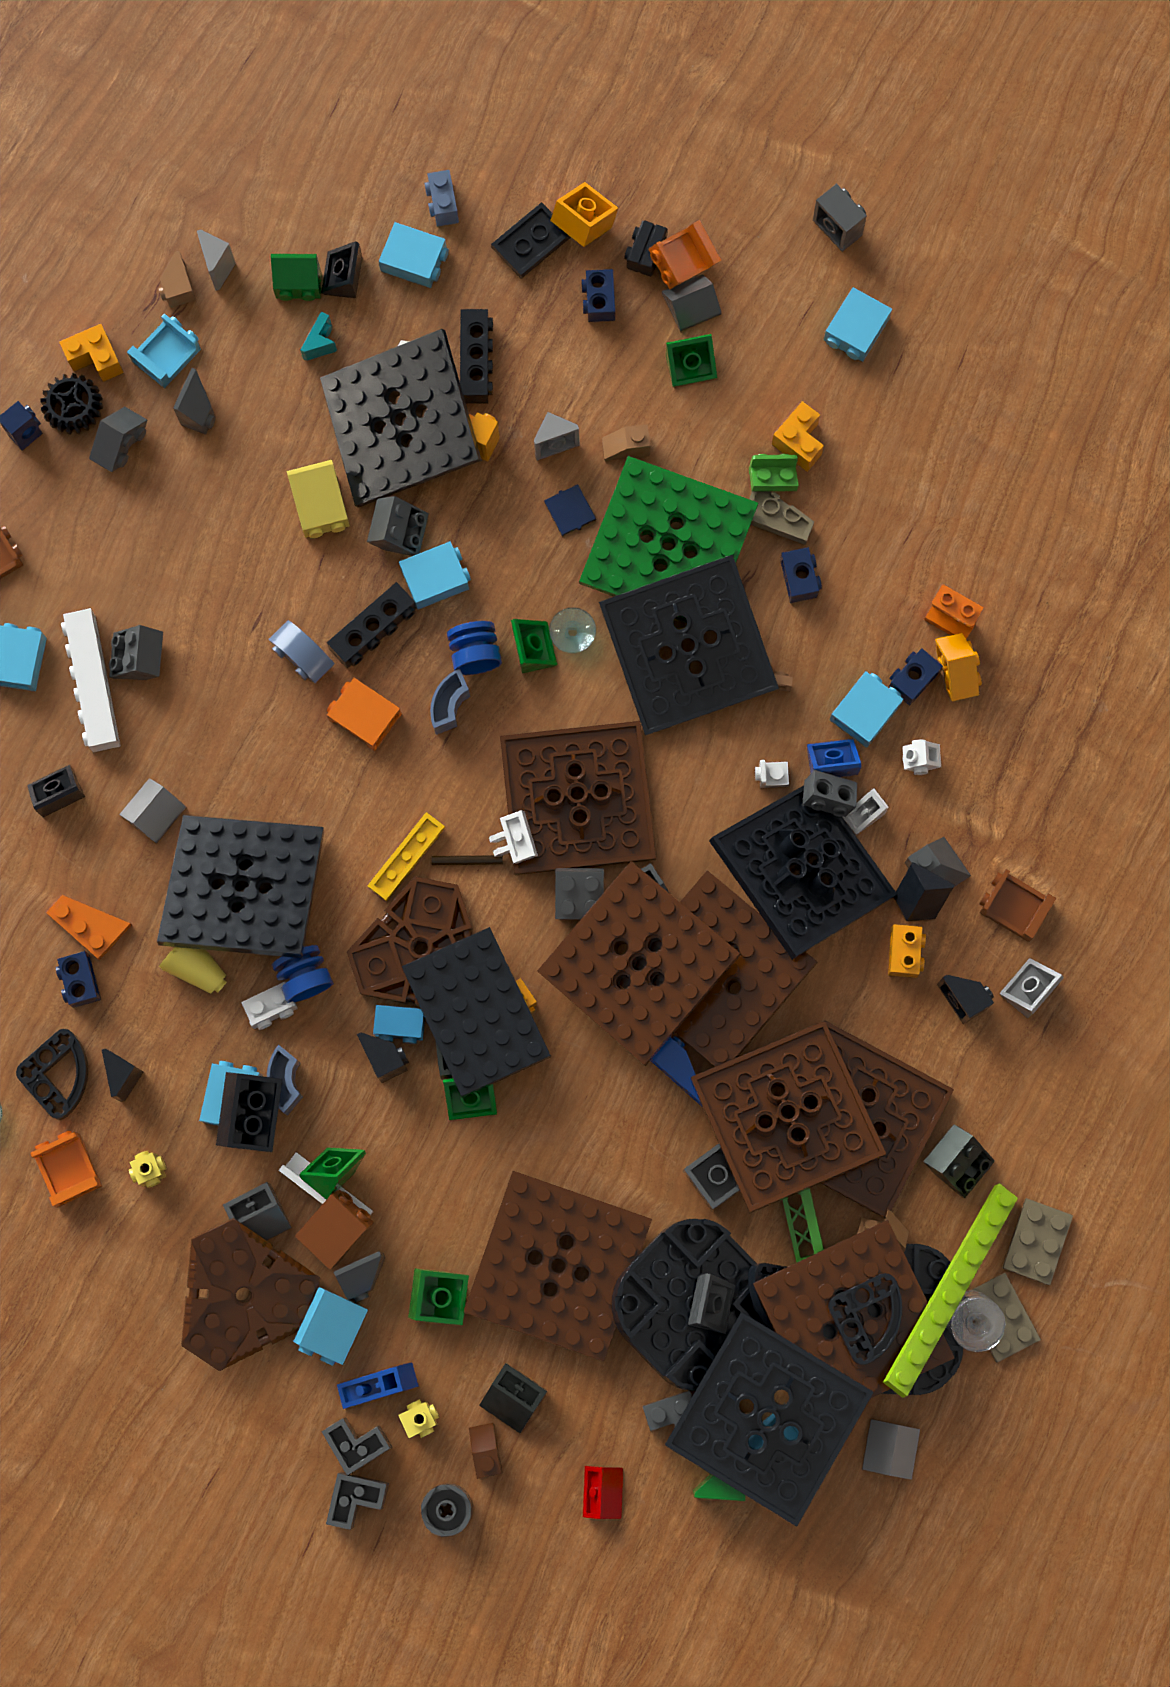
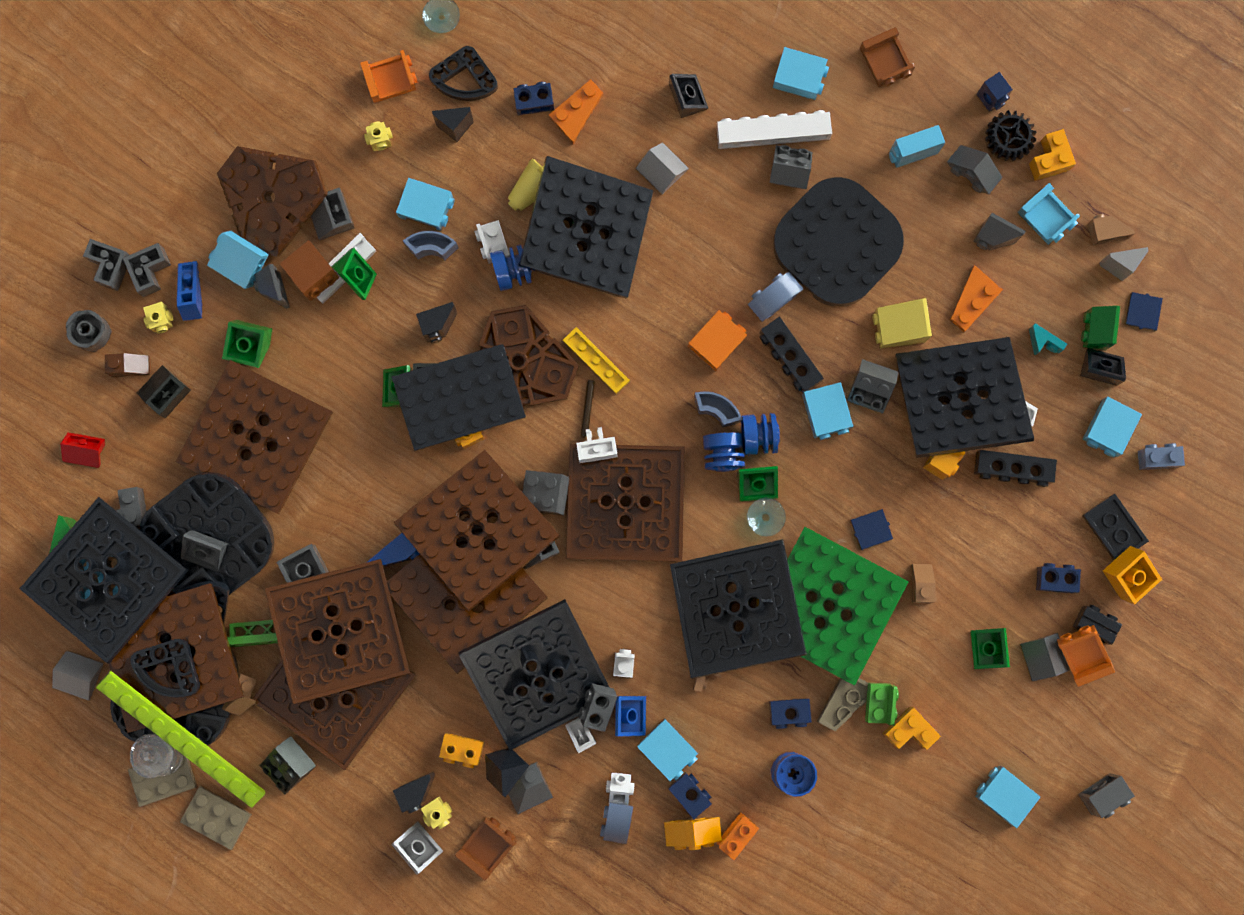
camera: 95 degrees right, 5 degrees up
(97, 507) = (916, 146): none -> medium azure brick
(224, 587) = (838, 241): none -> black plate
(249, 1112) = (405, 213): black slope -> none
(269, 235) = (1144, 311): none -> dark blue piece
(276, 423) = (975, 298): none -> orange wing
(399, 1023) = (463, 337): dark azure brick -> none
(501, 686) = (724, 451): none -> blue wheel
(555, 436) = (934, 523): light grey slope -> none
(878, 550) = (804, 778): none -> blue wheel
(961, 753) = (617, 822): none -> sand blue brick
(978, 971) = (436, 806): none -> light yellow brick

